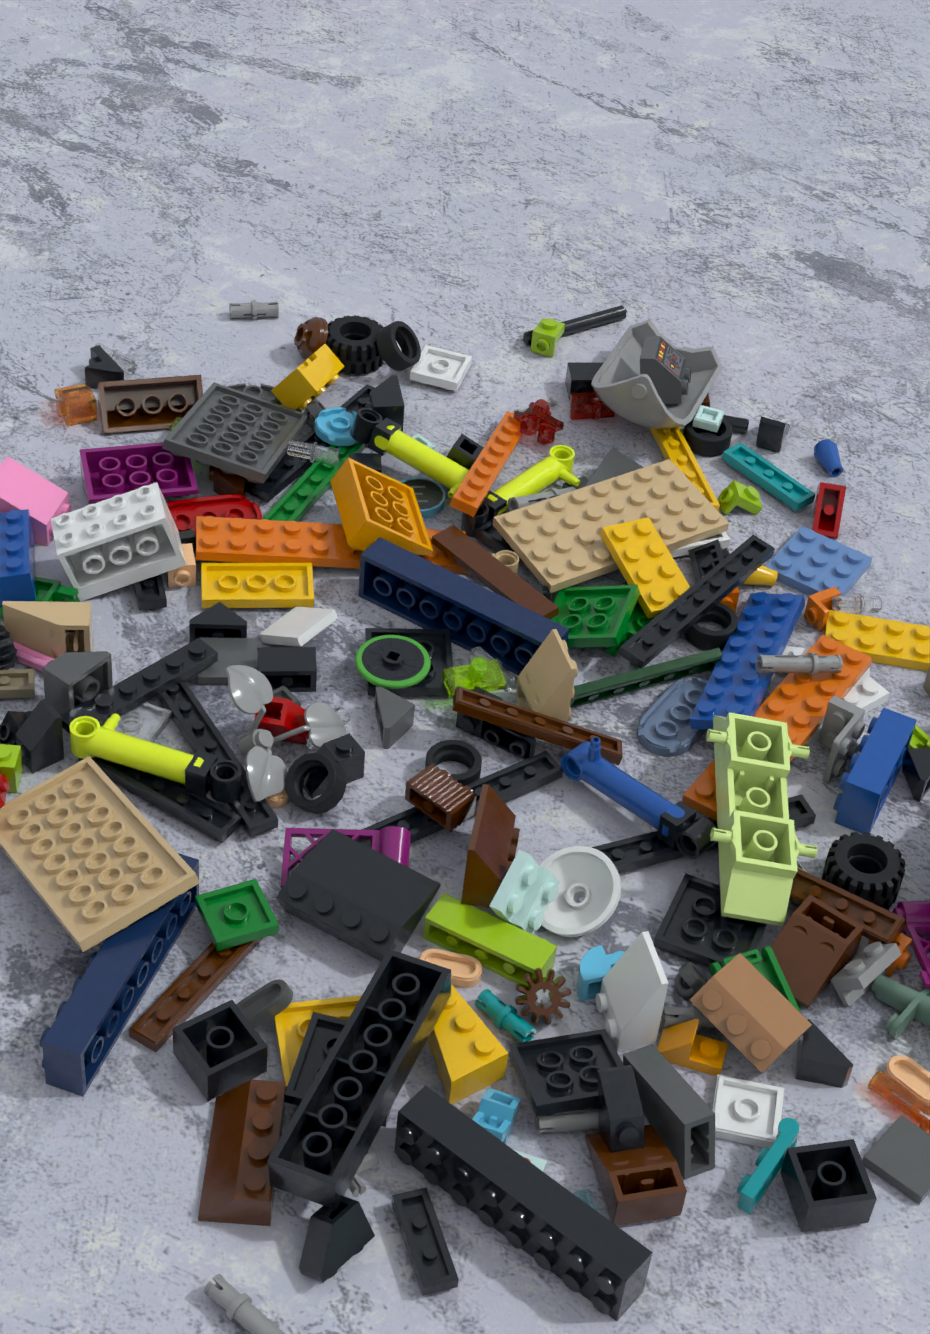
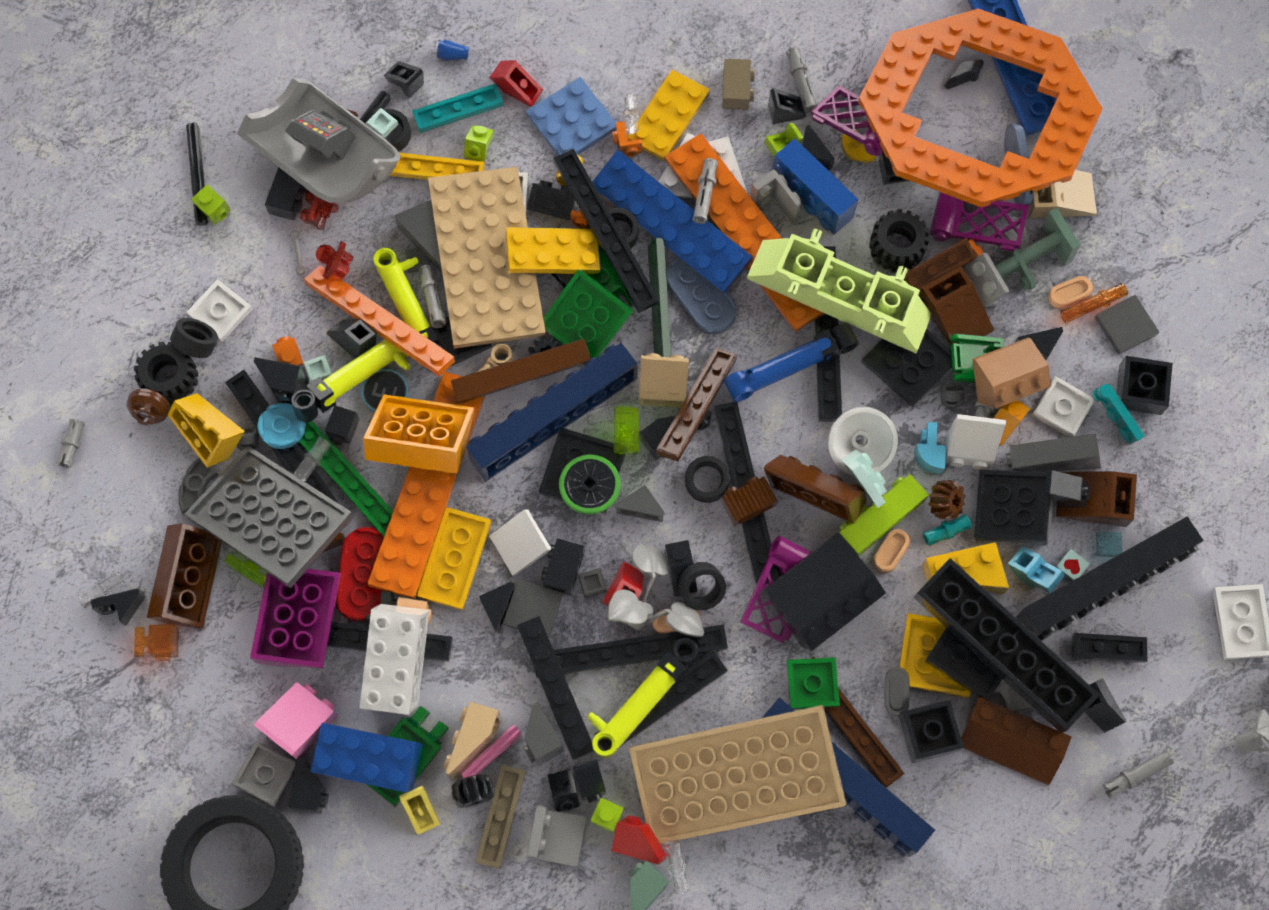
camera: 65 degrees left, 30 degrees up
(421, 416) = (287, 351): none -> orange bracket

